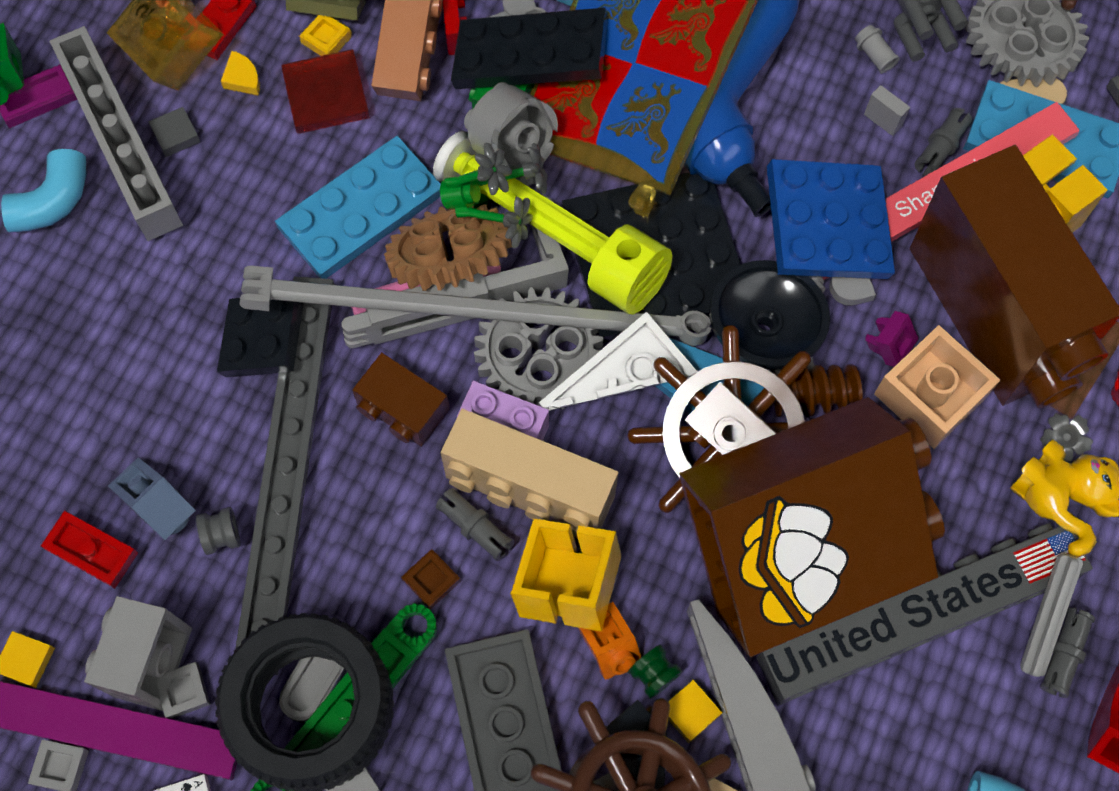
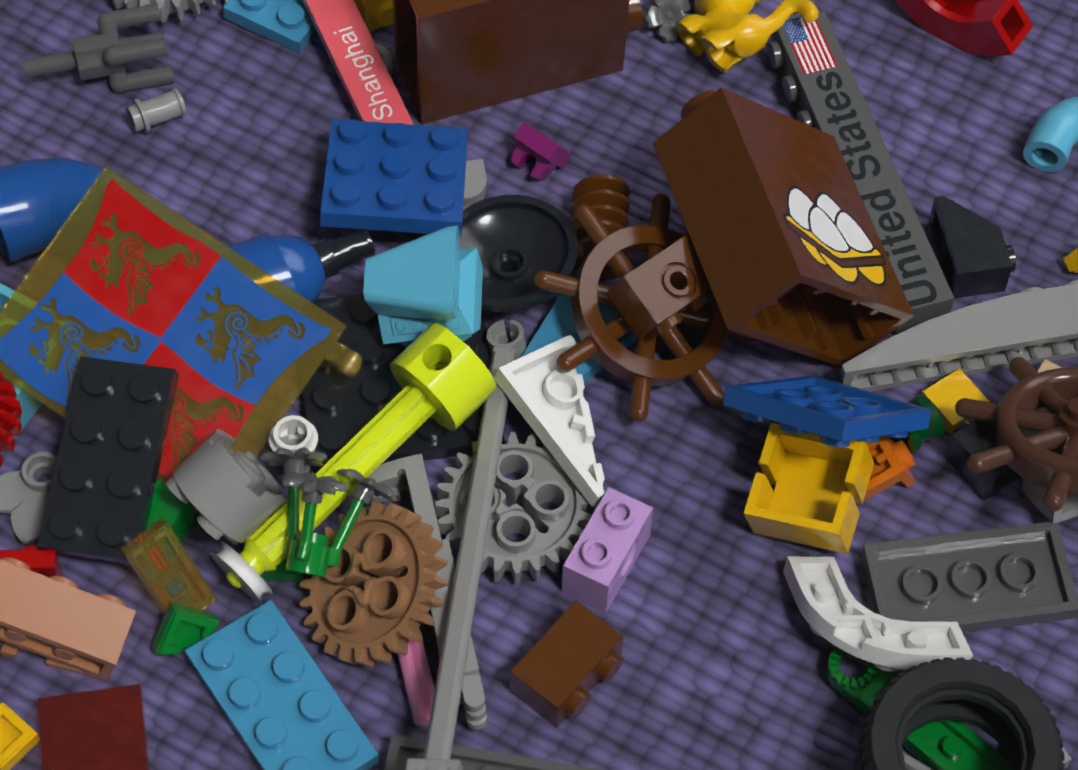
camera: 85 degrees left, 10 degrees down
(415, 132) = (183, 628): none -> green tile
(431, 579) = (792, 652): reddish brown tile -> none
(433, 630) = (860, 632): none -> white plate
(448, 107) = (167, 568): none -> clear yellow tile
(475, 524) = (731, 595): dark grey pin -> none
(527, 473) = (685, 520): tan brick -> none
(568, 177) = (294, 433): none -> white cone
(635, 579) = (826, 409): none -> blue plate
(711, 247) = (425, 285): none -> medium azure piece
(849, 720) = (970, 250): none -> black slope
(886, 110) = (246, 111): light grey tile -> none
(937, 385) = (608, 113): light nougat brick -> none
(943, 141) = (295, 65): dark grey pin -> none
(1051, 614) = (870, 54): light grey axle -> none
(1068, 653) = (902, 56): dark grey pin -> none

